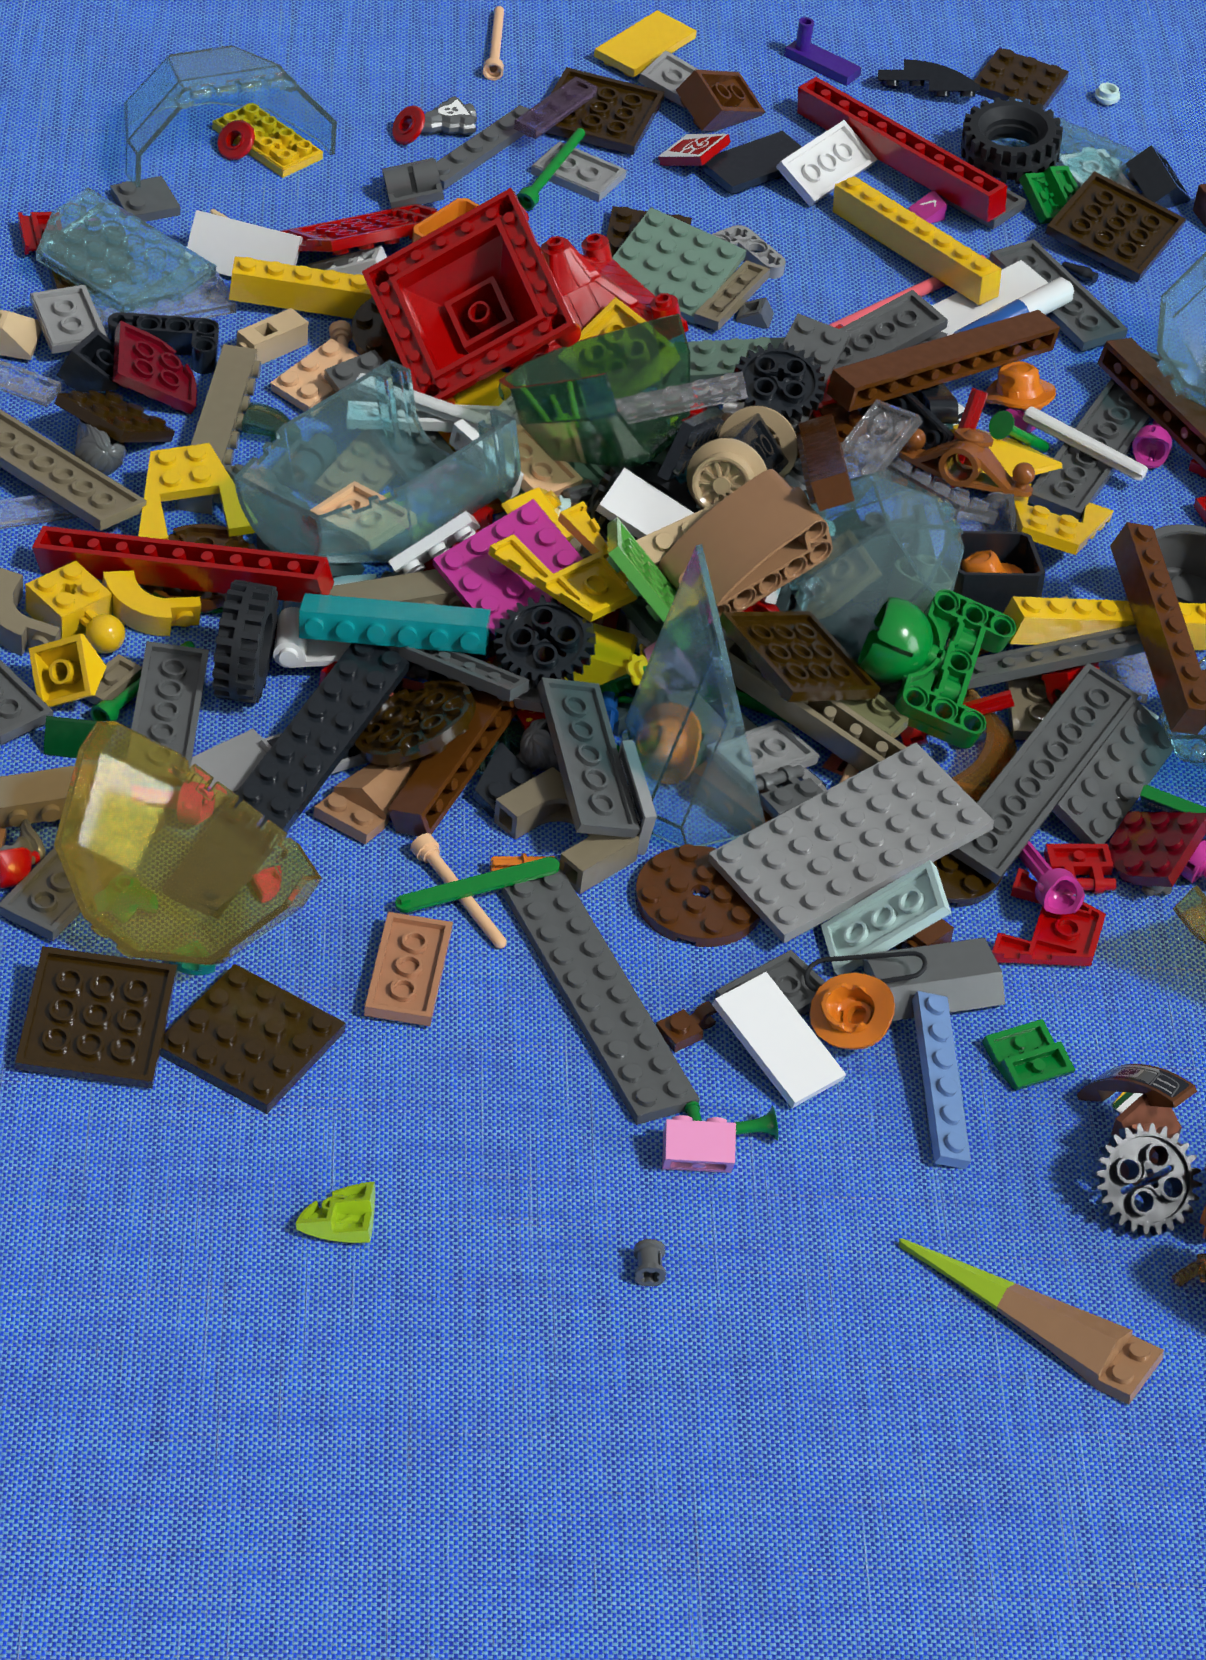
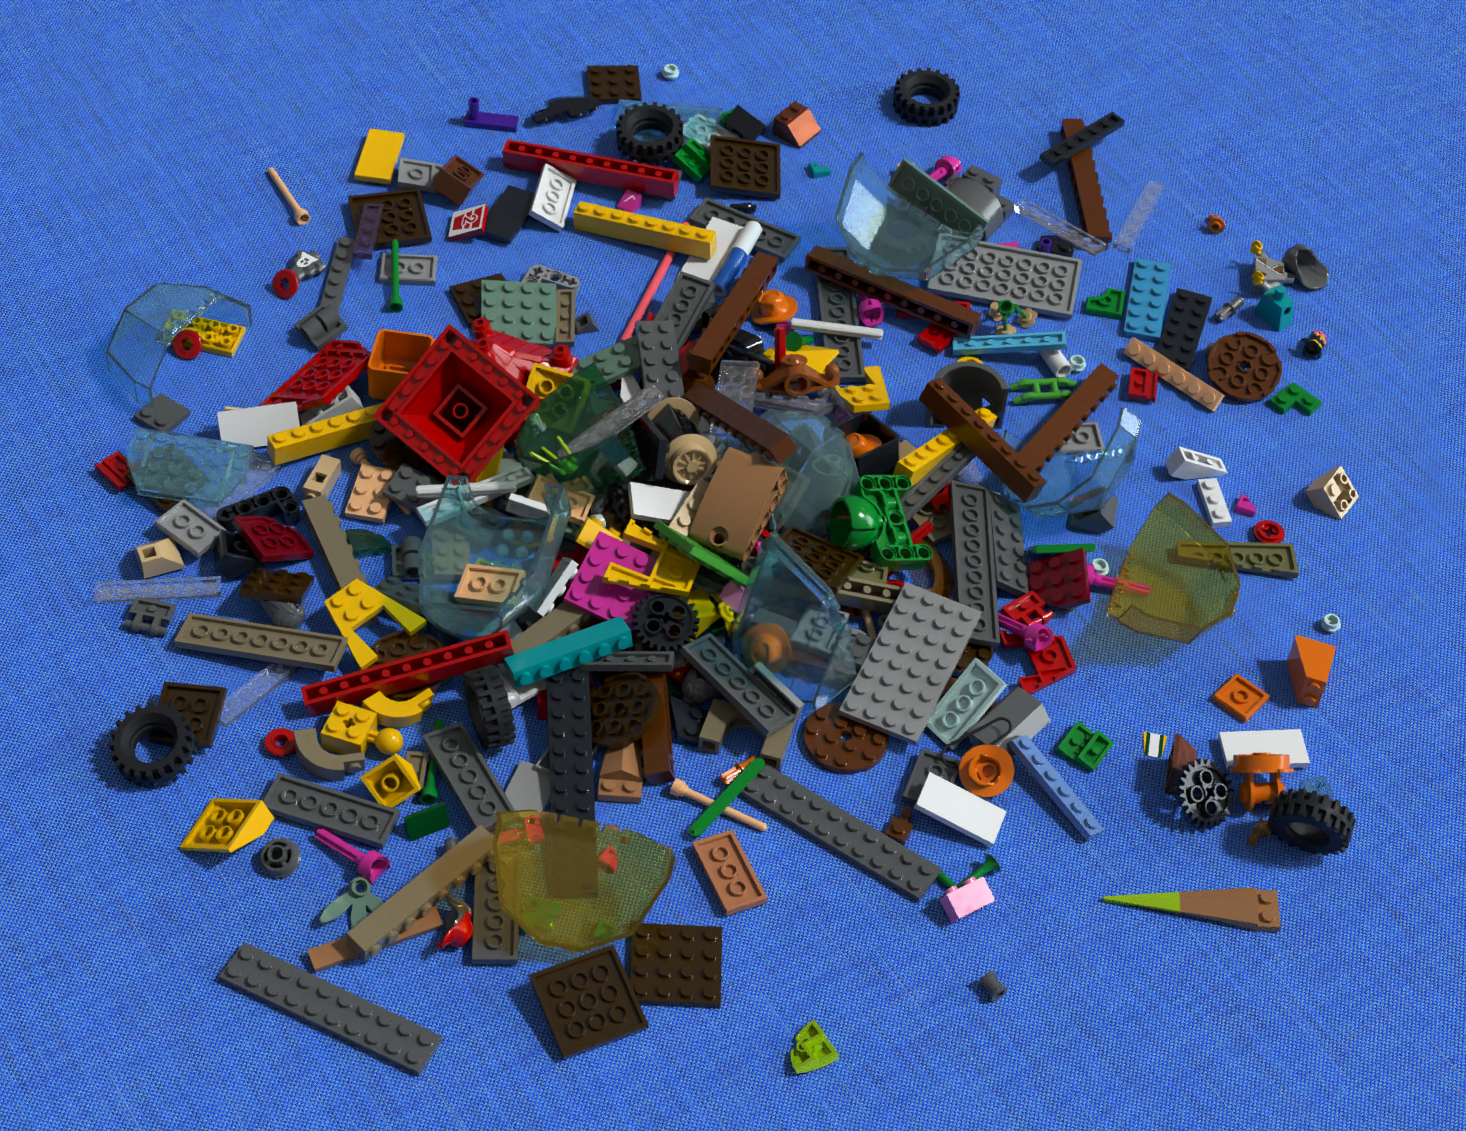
camera: 30 degrees left, 5 degrees up
(782, 381) = (659, 374): black gear -> none
(1159, 1085) = (1164, 735): slope -> none

